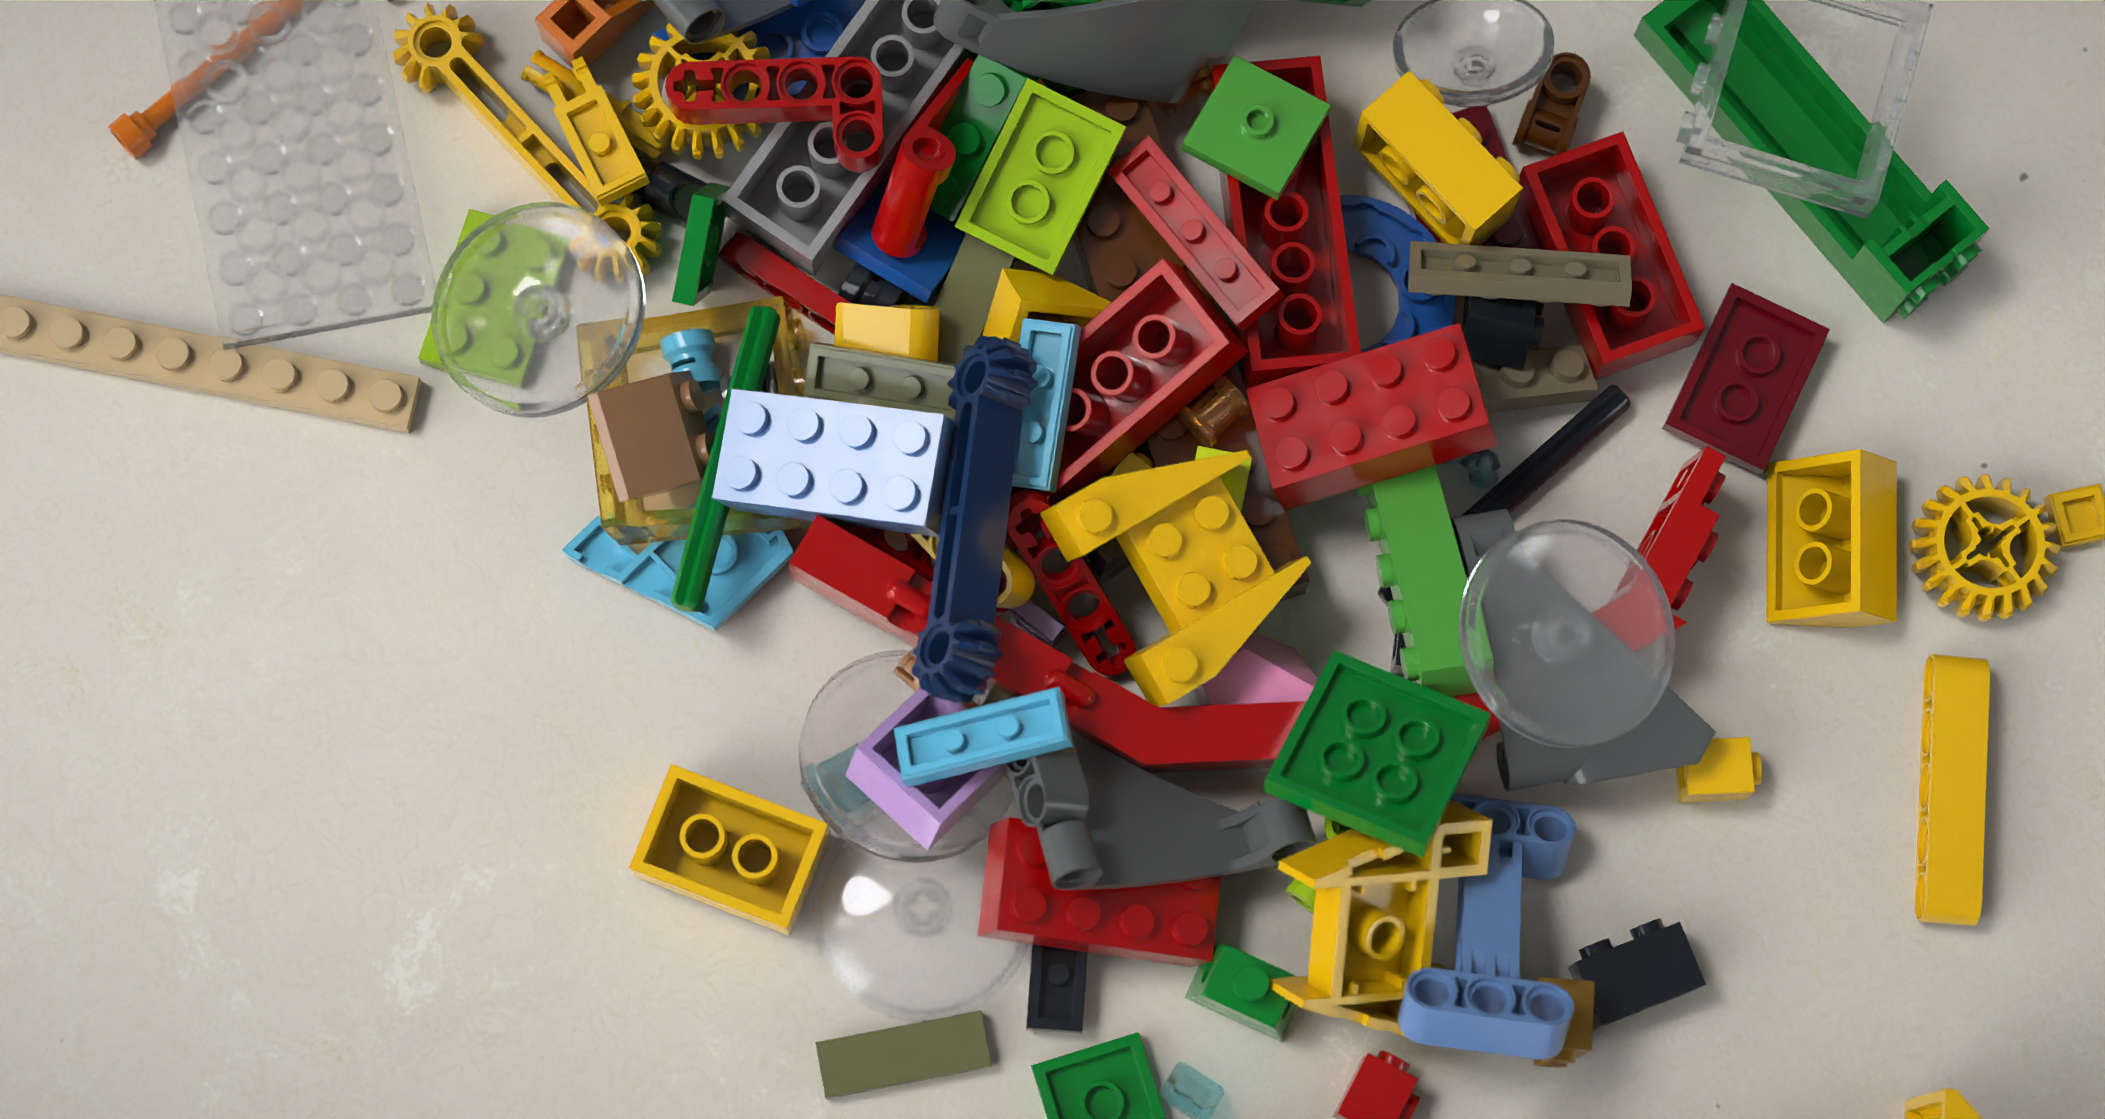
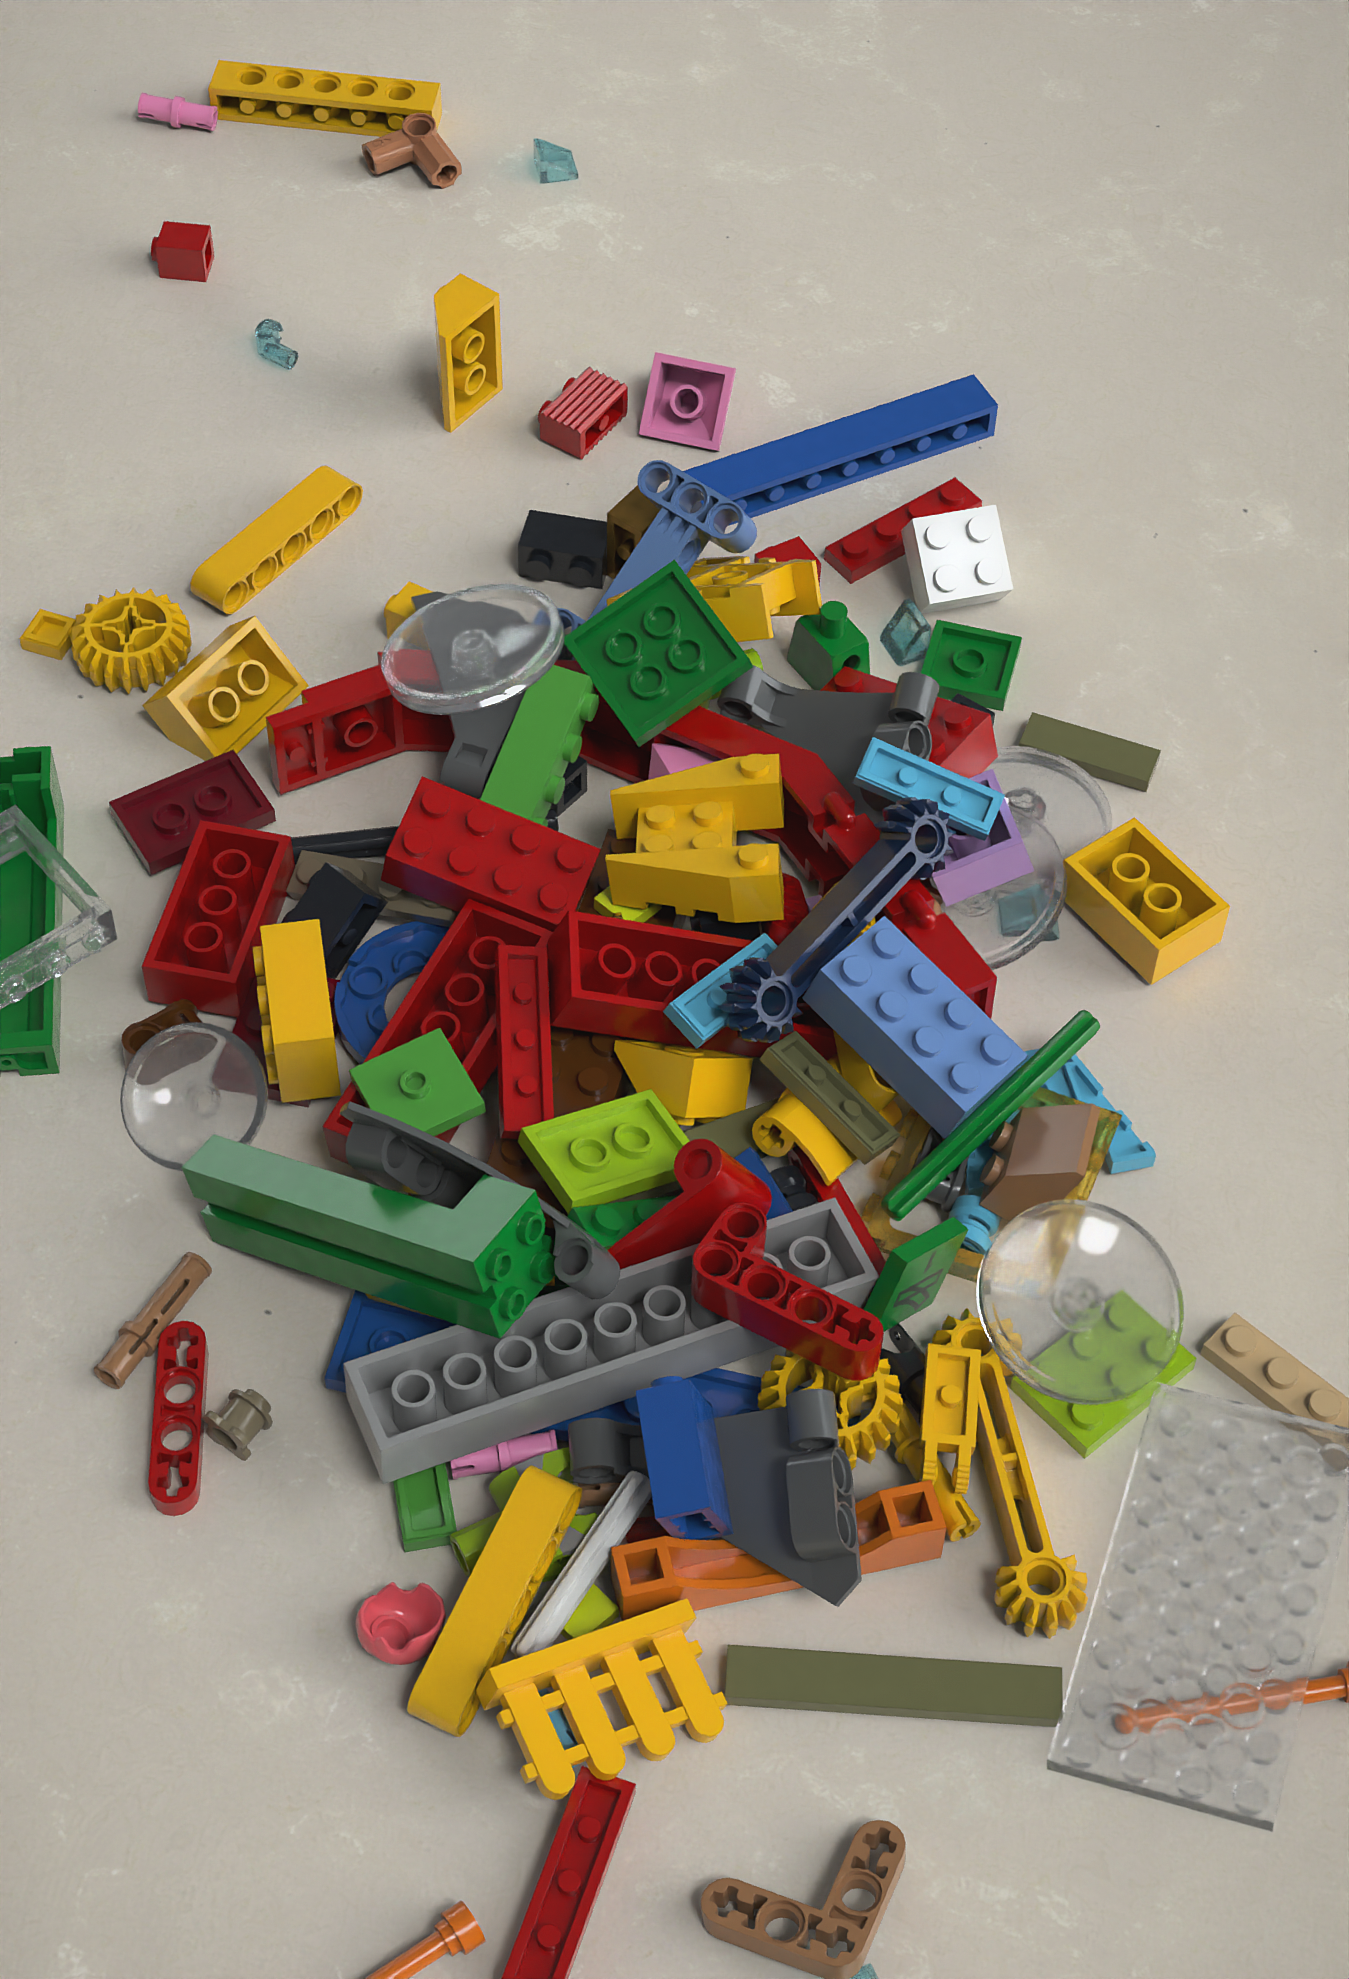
camera: 145 degrees left, 25 degrees down
(1519, 274) = (300, 898): dark tan plate -> none

